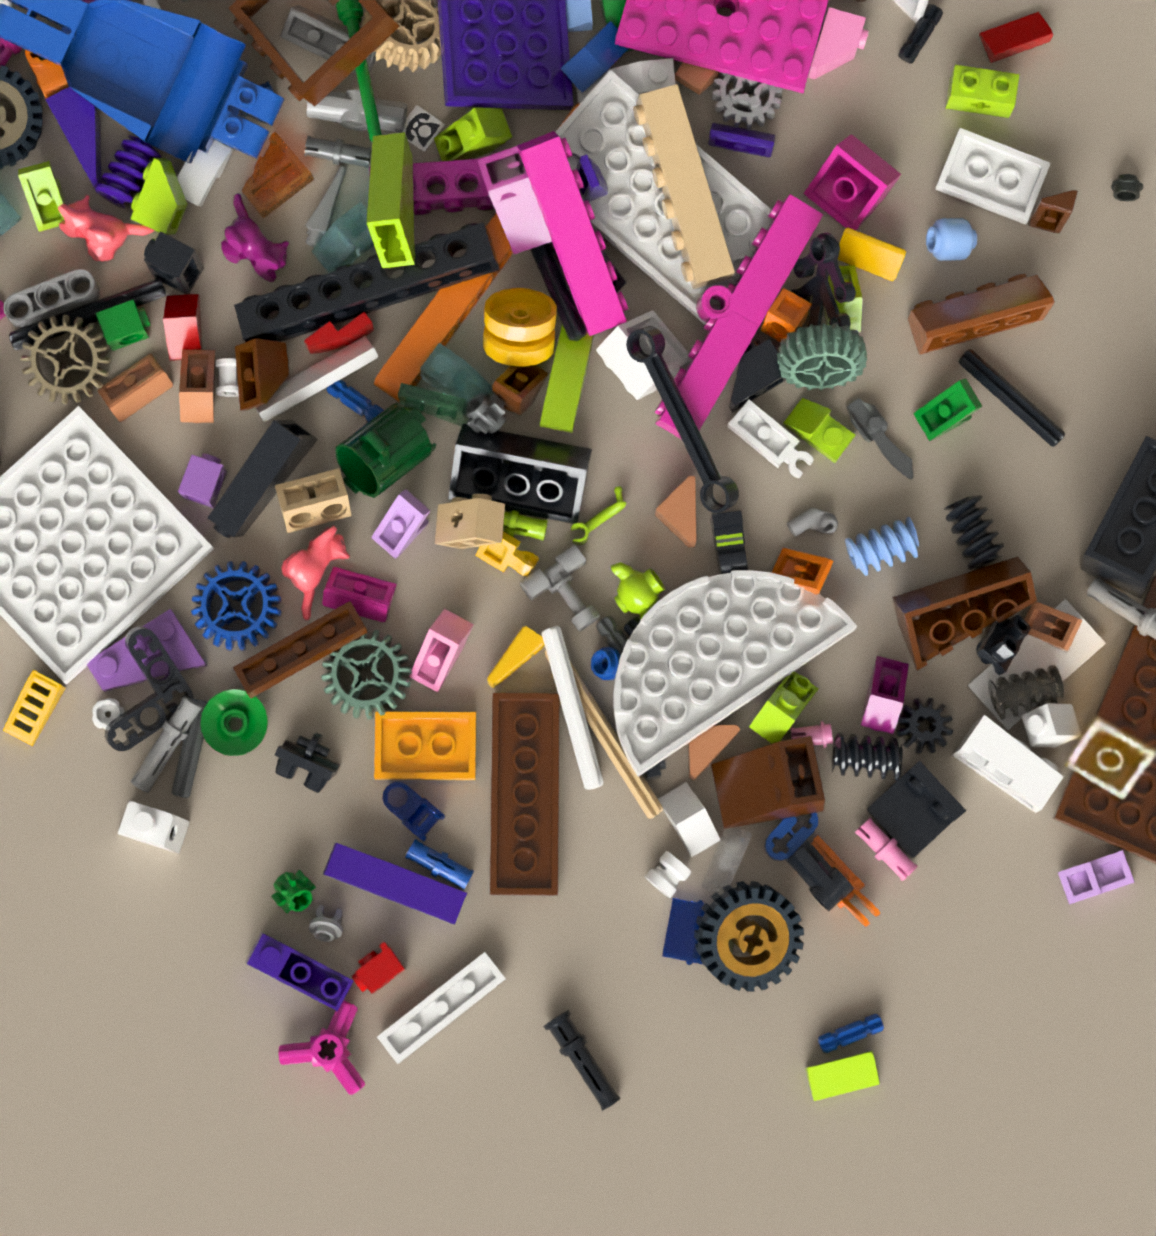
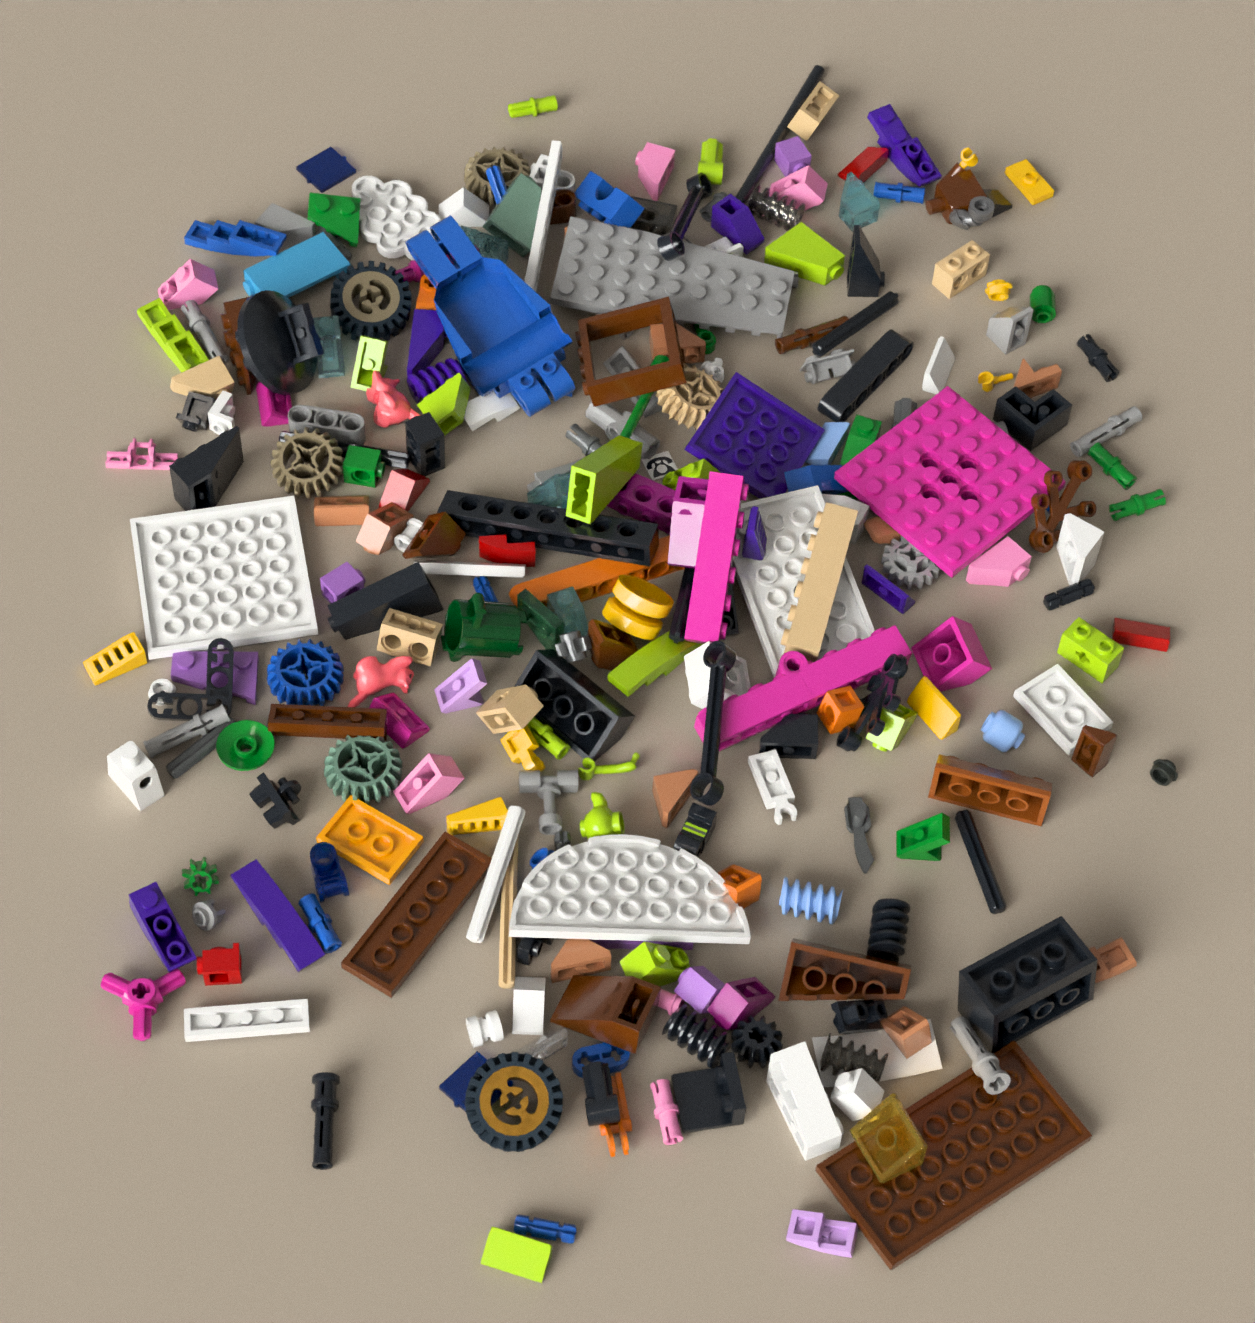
camera: 30 degrees right, 25 degrees down
(246, 241) = (487, 464): magenta animal -> none
(275, 177) = (535, 438): clear orange wing -> none
(815, 520) = (769, 857): light grey arm -> none
(818, 429) = (816, 802): lime slope -> none
(822, 356) = (848, 743): sand green gear -> none
(841, 707) = (698, 987): none -> brick

